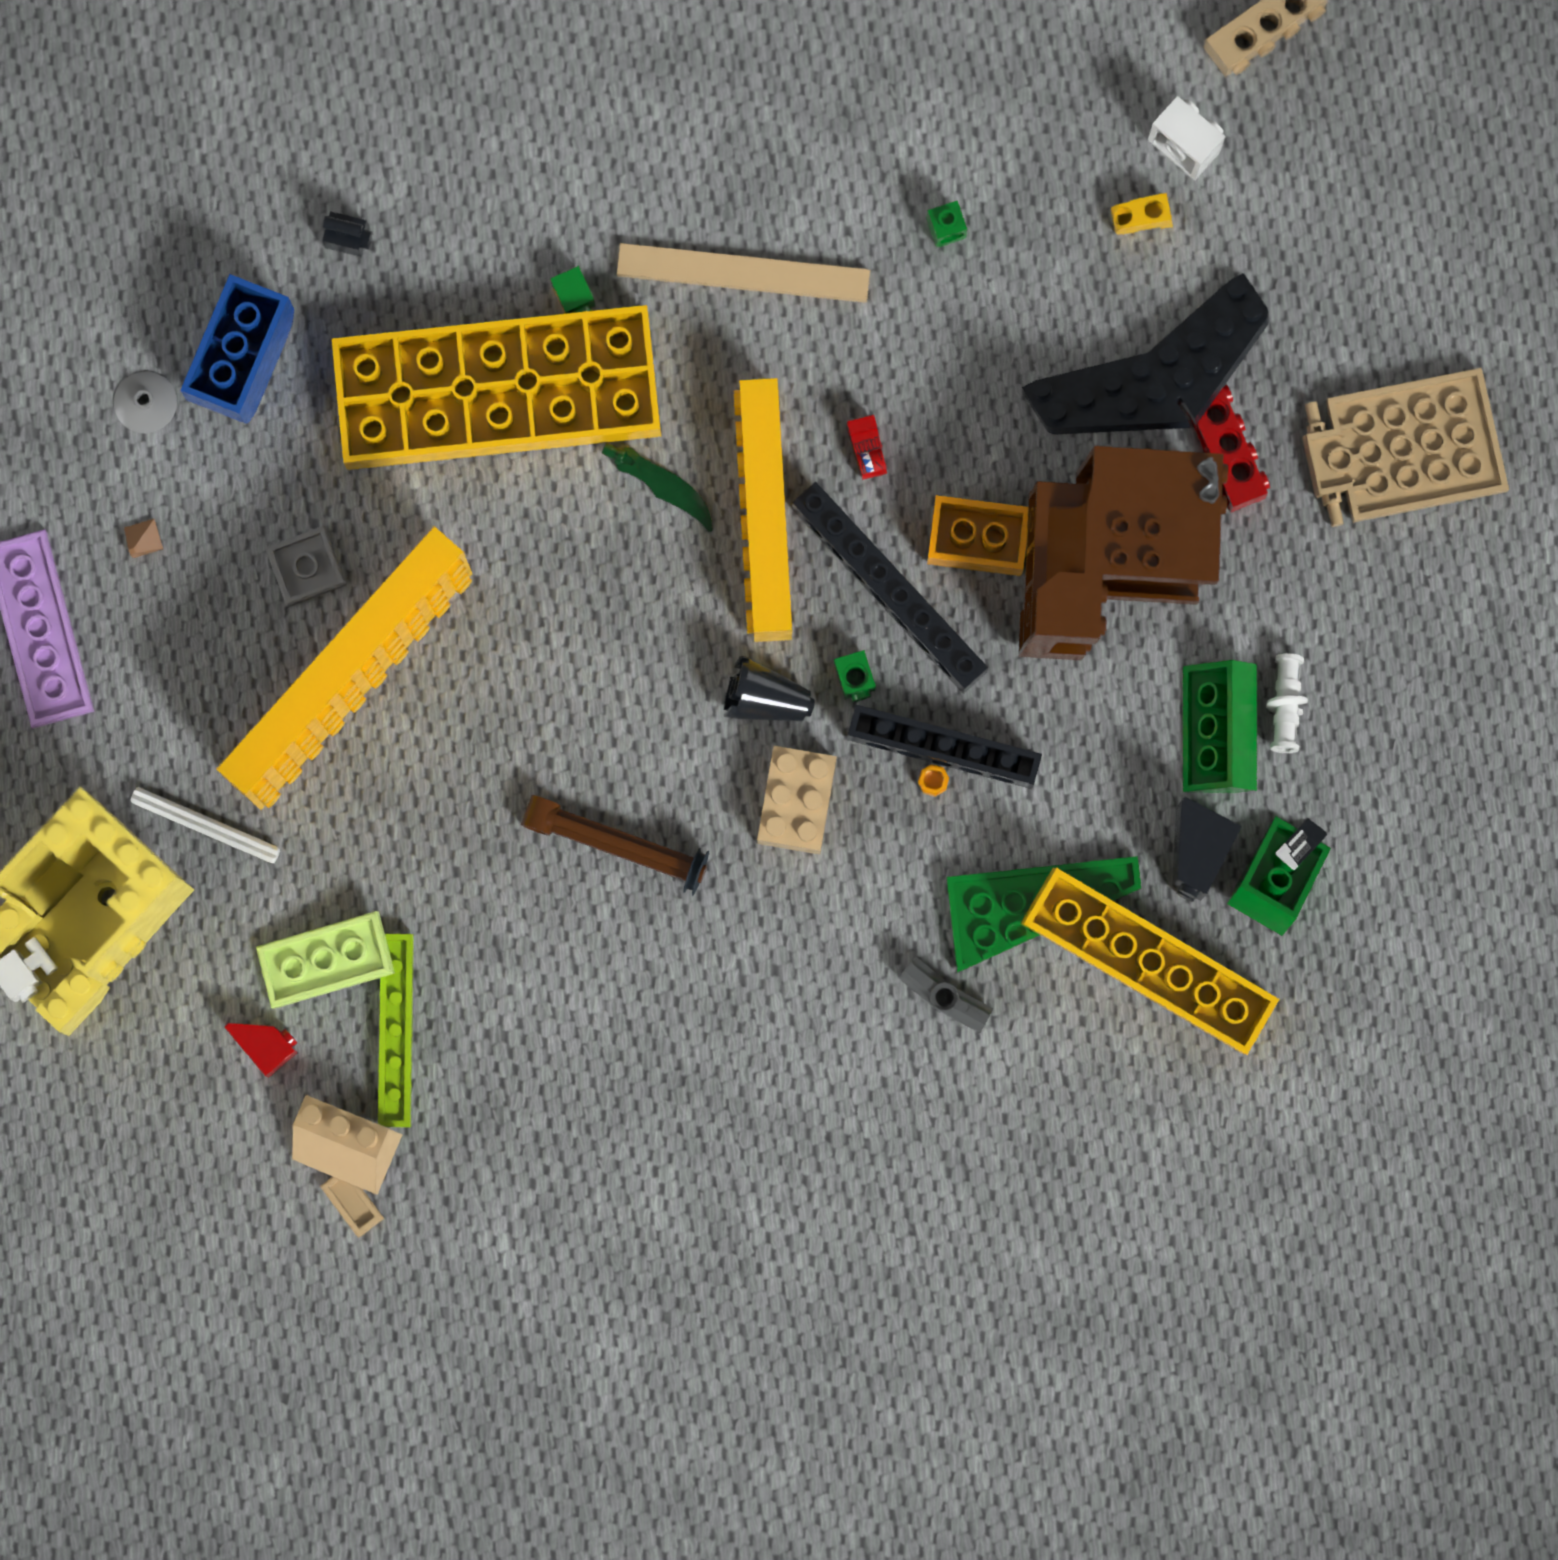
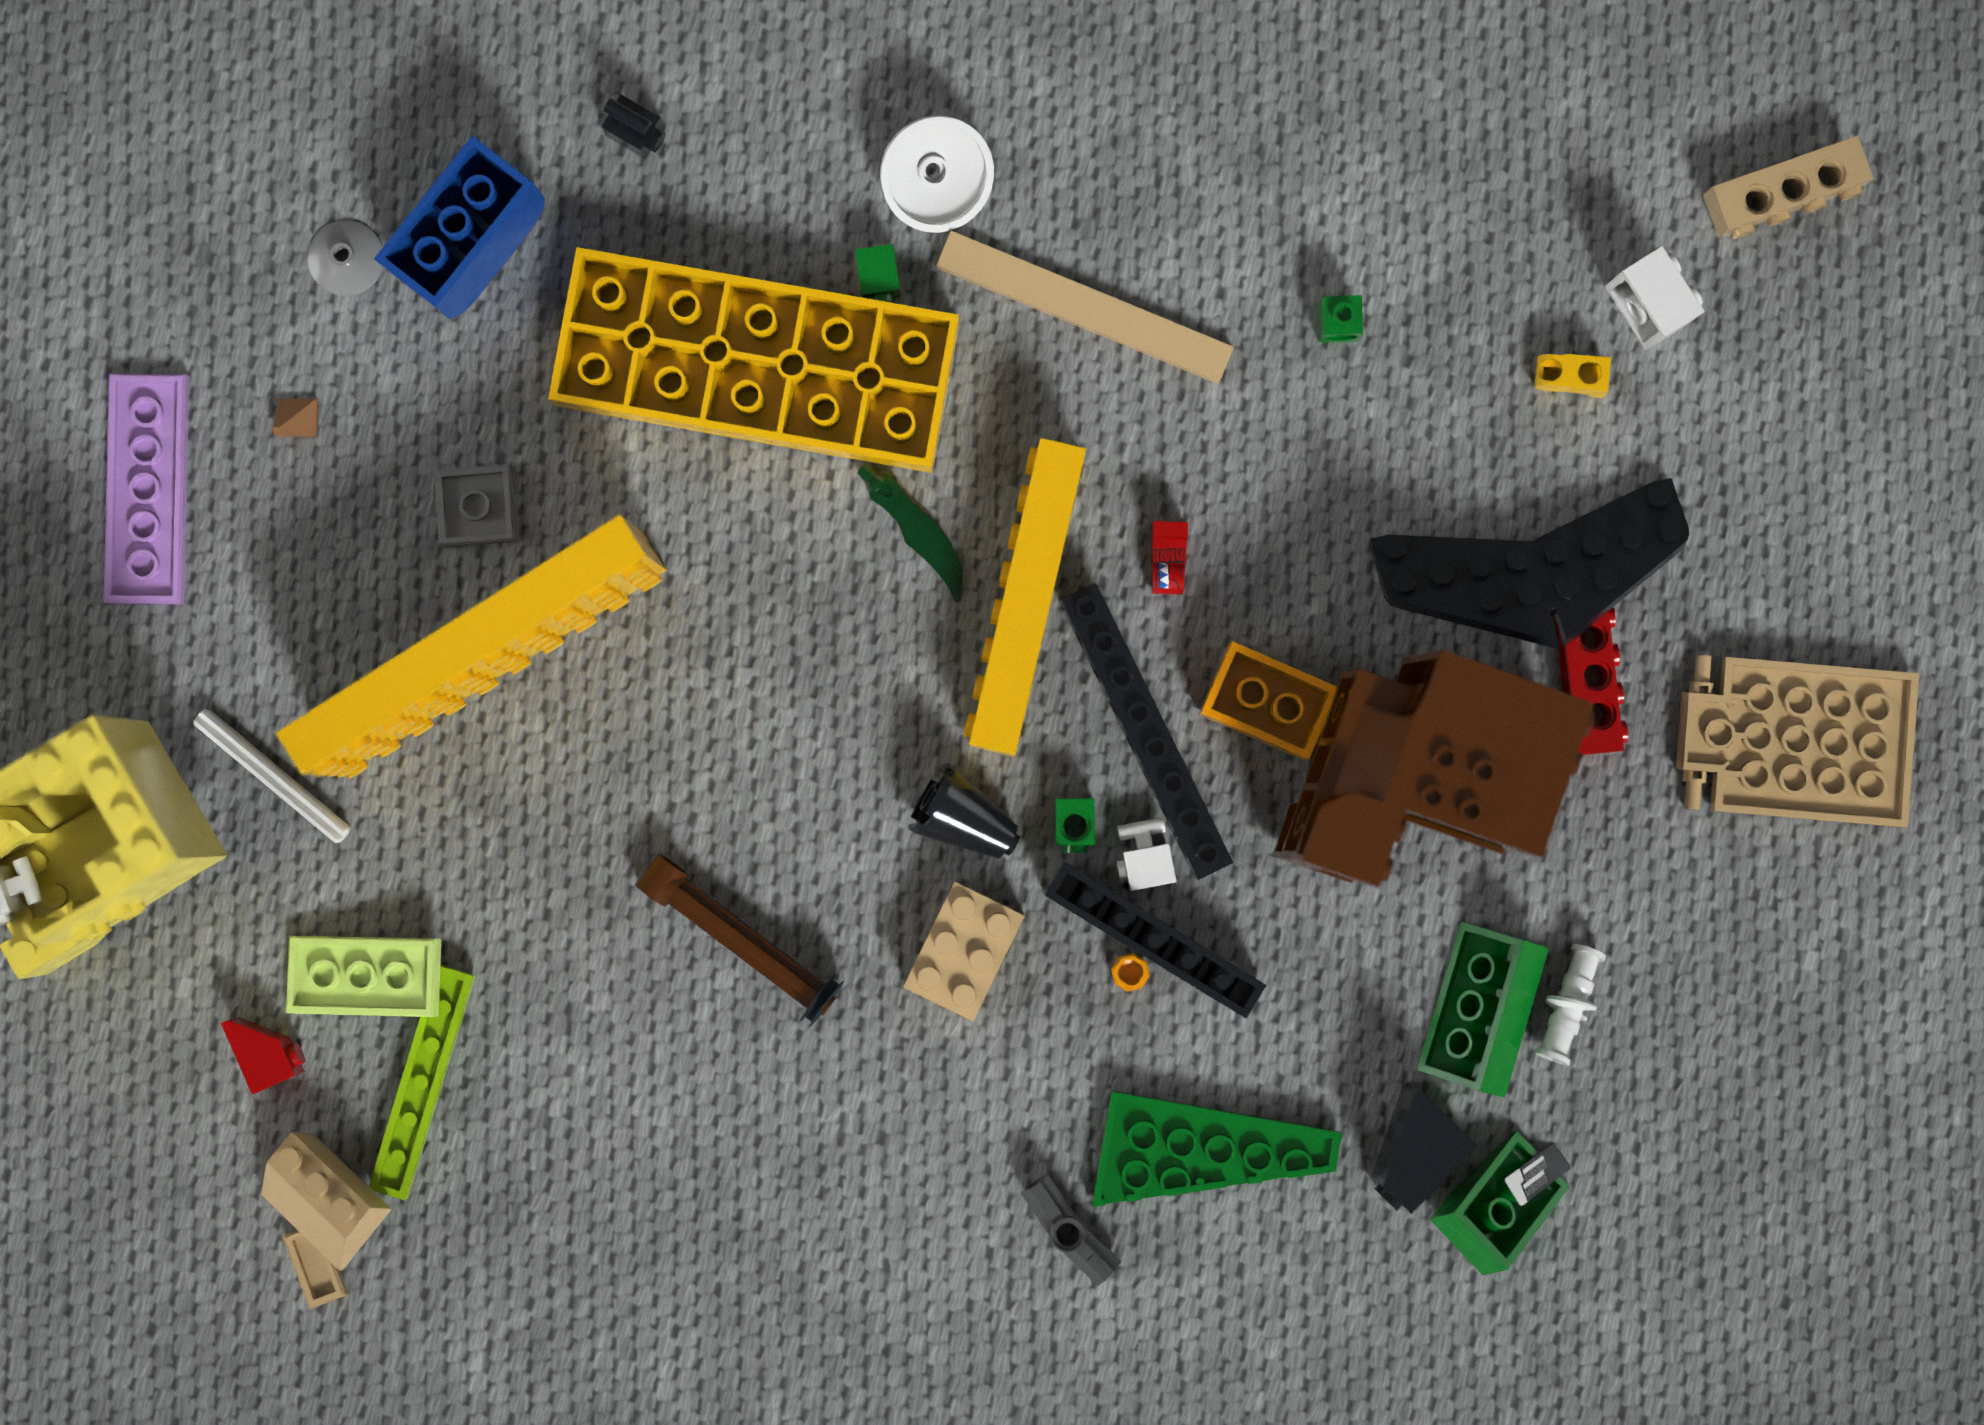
camera: 20 degrees right, 5 degrees up
(615, 205) = (954, 190): none -> white dish
(922, 690) = (1147, 864): none -> white brick
(1150, 961) = (1320, 1266): yellow brick -> none
(1208, 469) = (1571, 719): dark grey piece -> none

